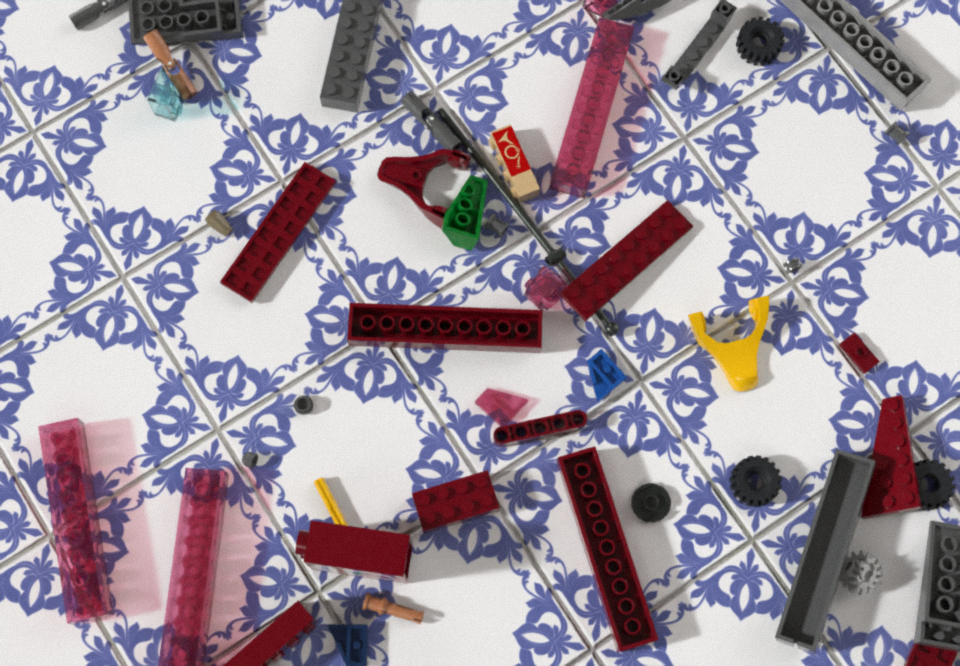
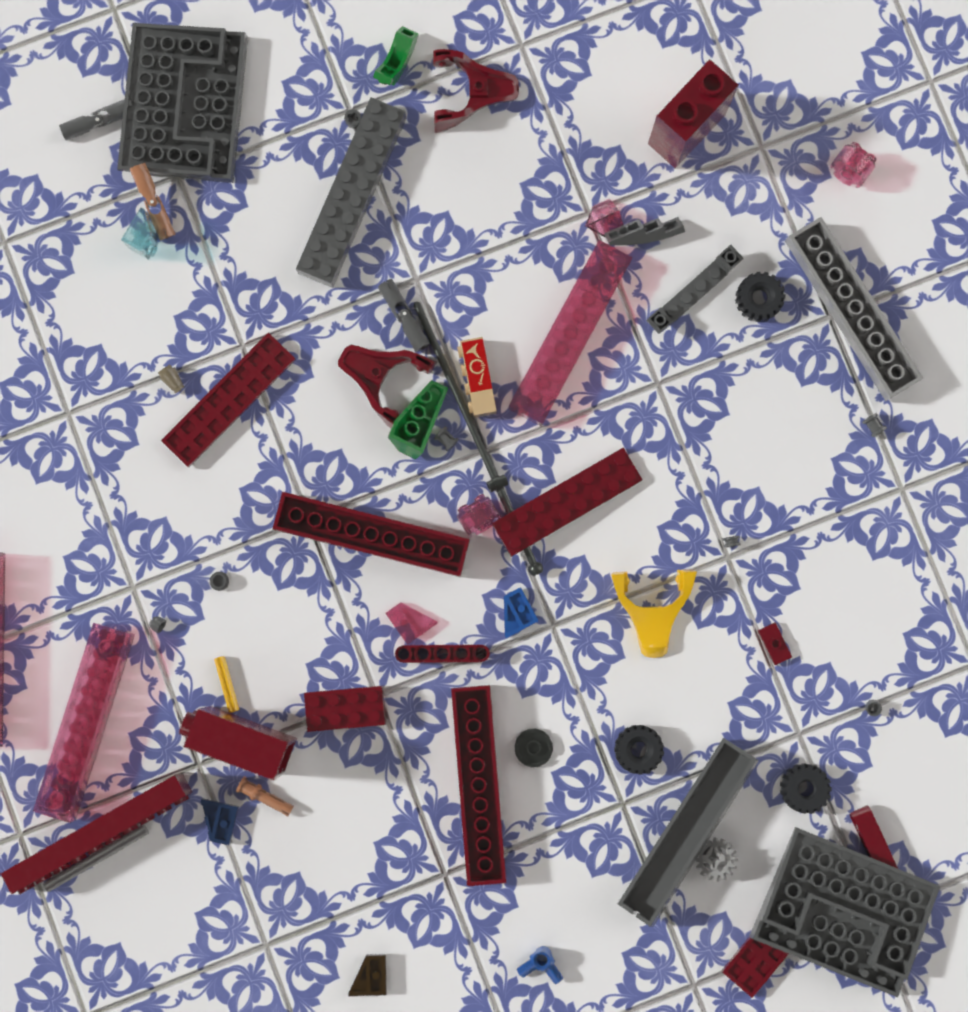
camera: 15 degrees right, 10 degrees up
(894, 480) = (773, 778): dark red wing -> none

